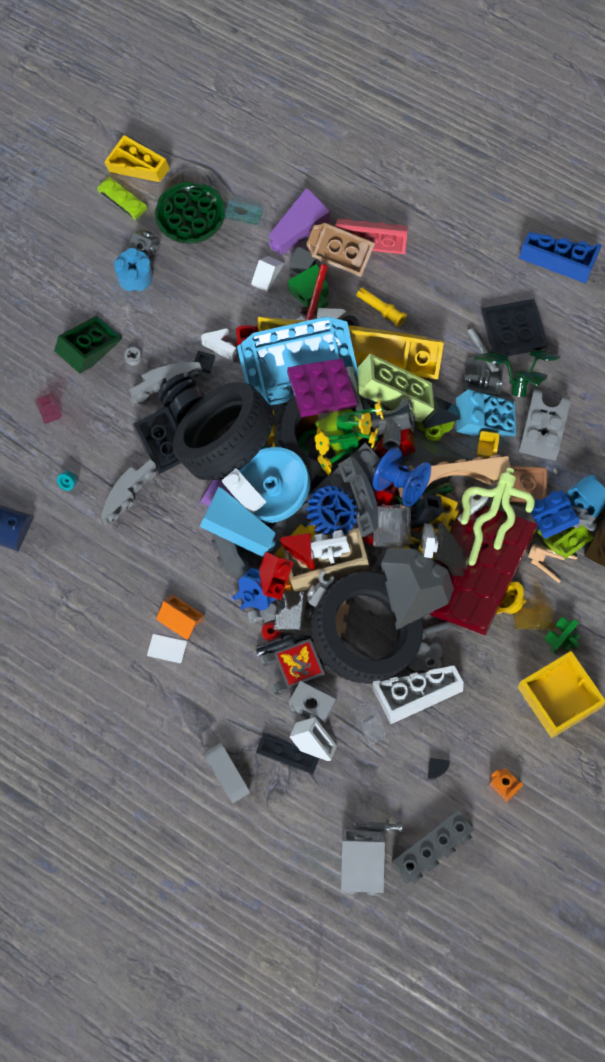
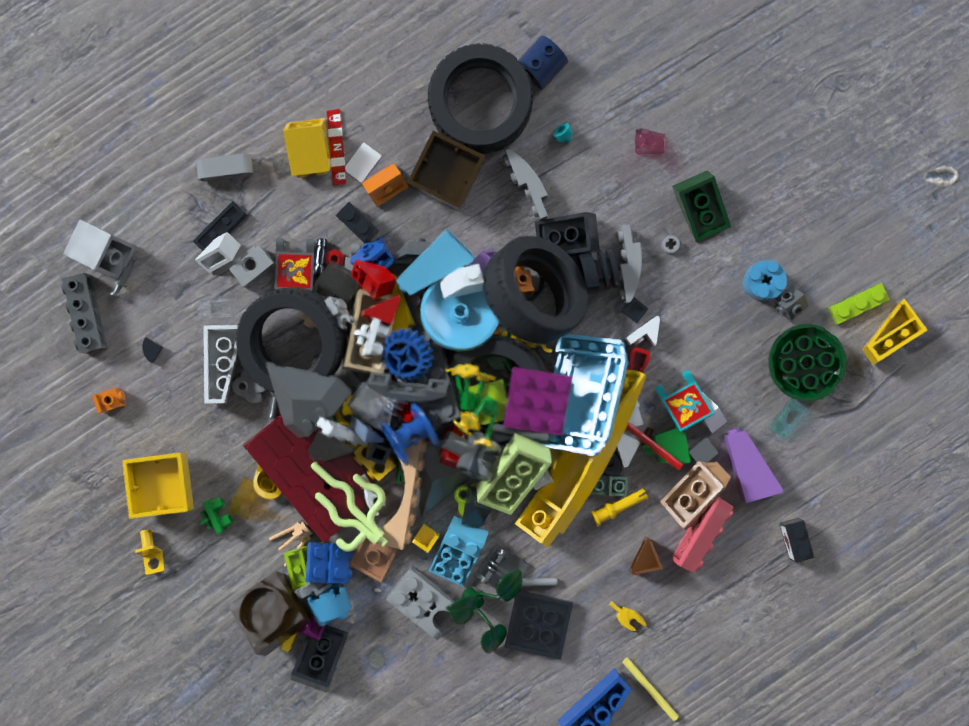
camera: 115 degrees right, 20 degrees up
(41, 528) = (481, 57): none -> black tyre
(145, 559) = (446, 171): none -> dark brown container
(161, 678) = (336, 147): none -> red sticker
(172, 700) = (307, 147): none -> yellow slope
(227, 623) = (357, 223): none -> black brick
(267, 285) = (687, 404): none -> flag
(342, 166) = (796, 540): none -> black brick
(366, 317) = (611, 486): none -> sand green slope
(414, 267) = (645, 559): none -> reddish brown slope
(418, 524) = (364, 431): none -> sand blue slope
(470, 267) = (625, 615): none -> yellow hand
(521, 226) = (650, 689): none -> light yellow bar

